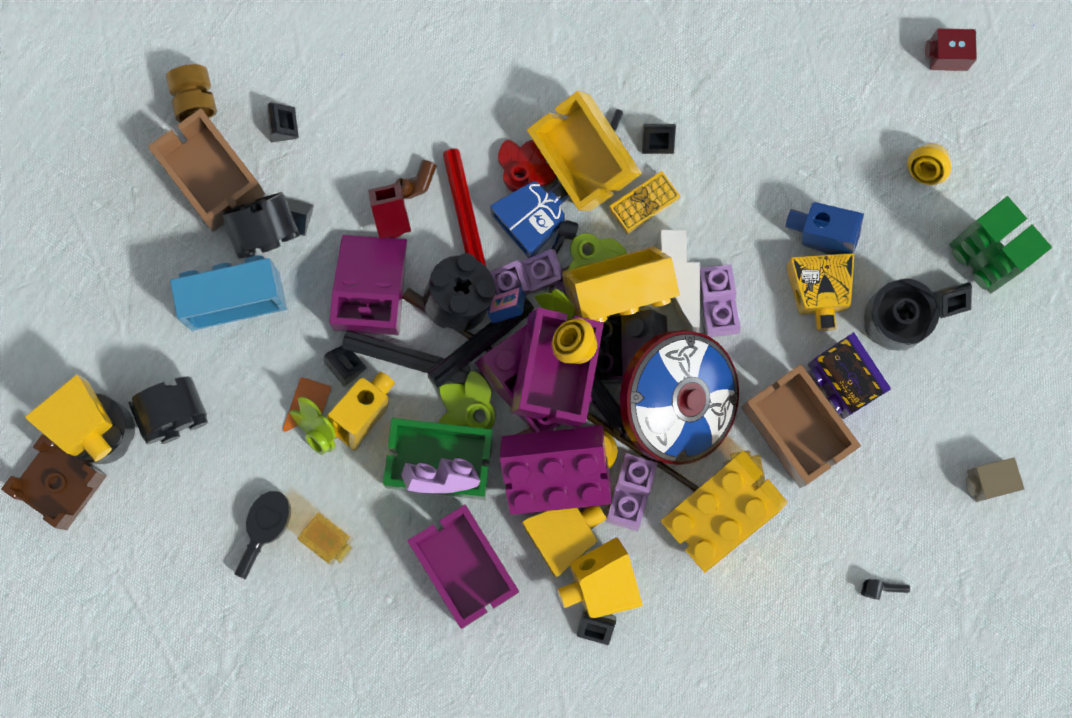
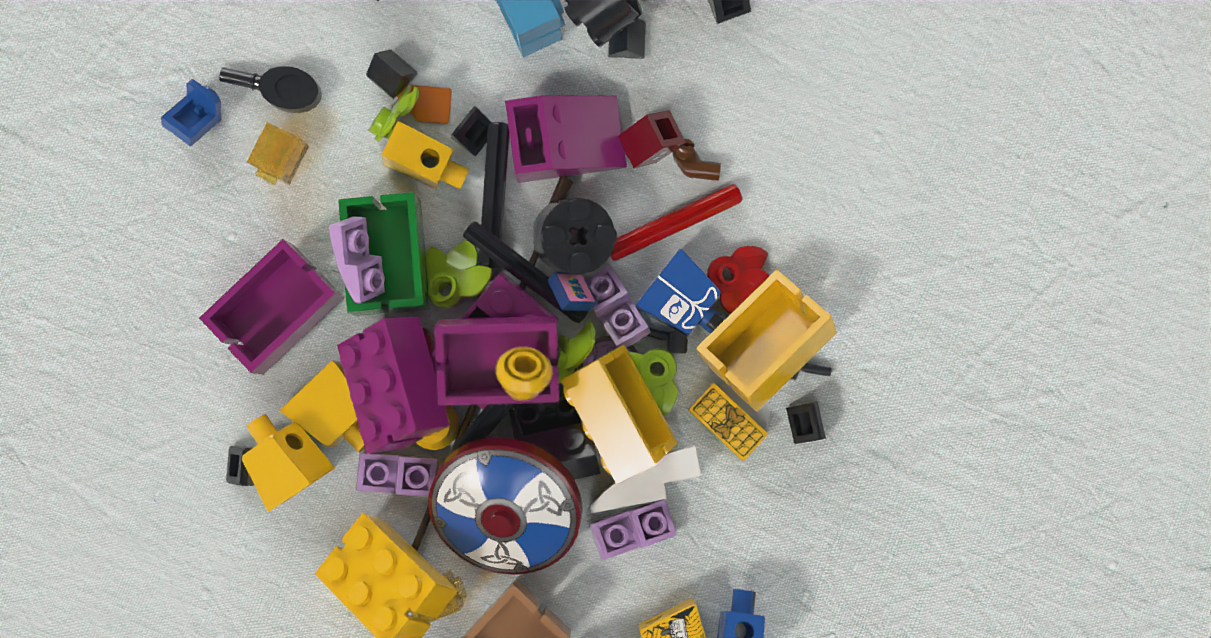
camera: 80 degrees right, 5 degrees up
(270, 607) = (194, 113): none -> blue bracket
(275, 426) = (390, 72): none -> black slope

